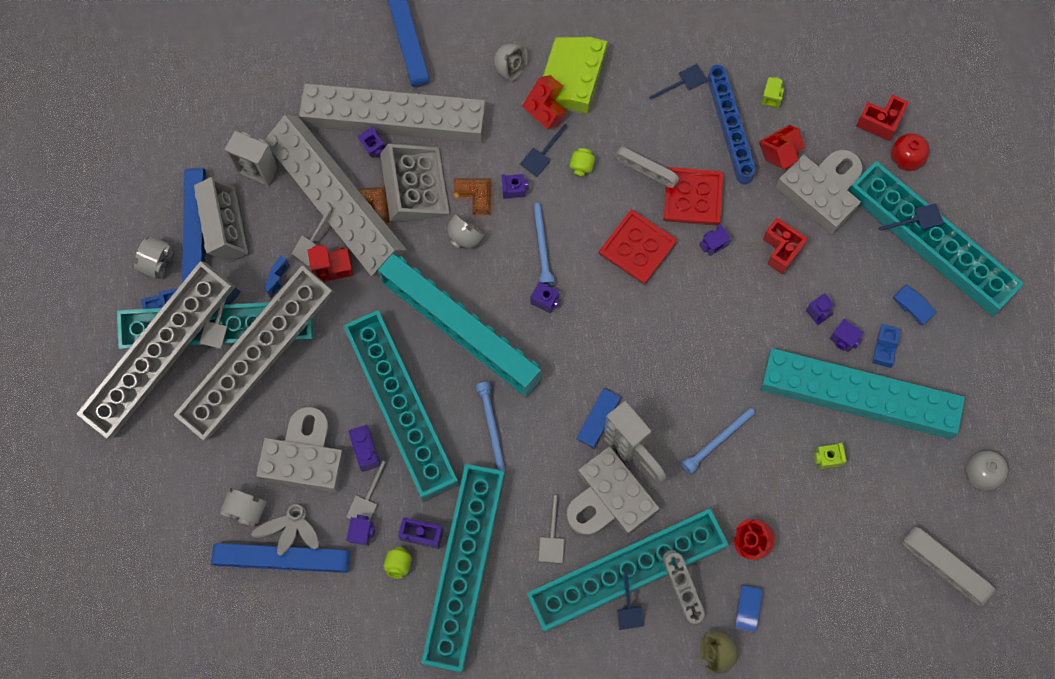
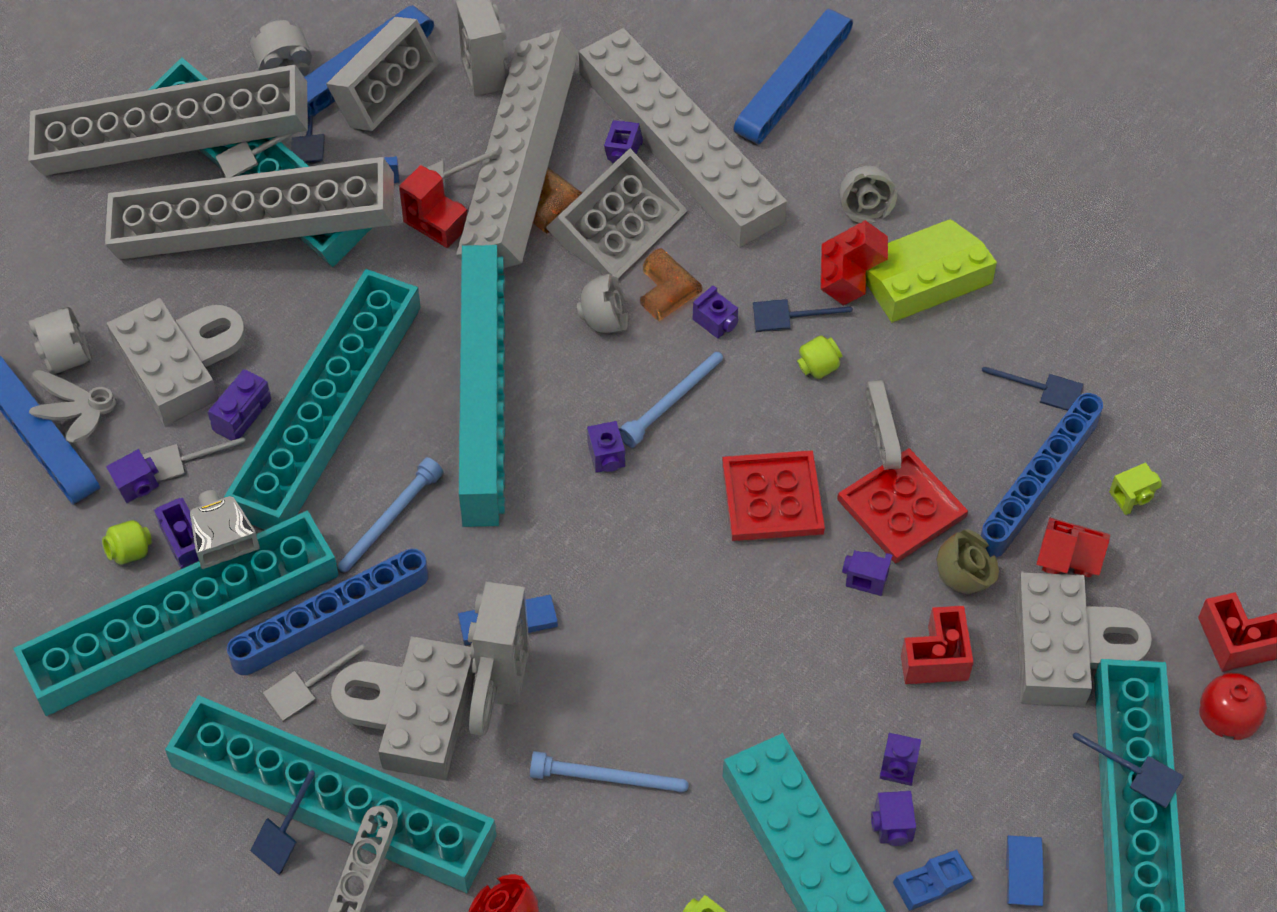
camera: 45 degrees right, 15 degrees down
(444, 513) = (221, 530): none -> light grey torso
(523, 505) = (320, 623): none -> blue beam
(751, 197) = (966, 564): none -> olive cylinder

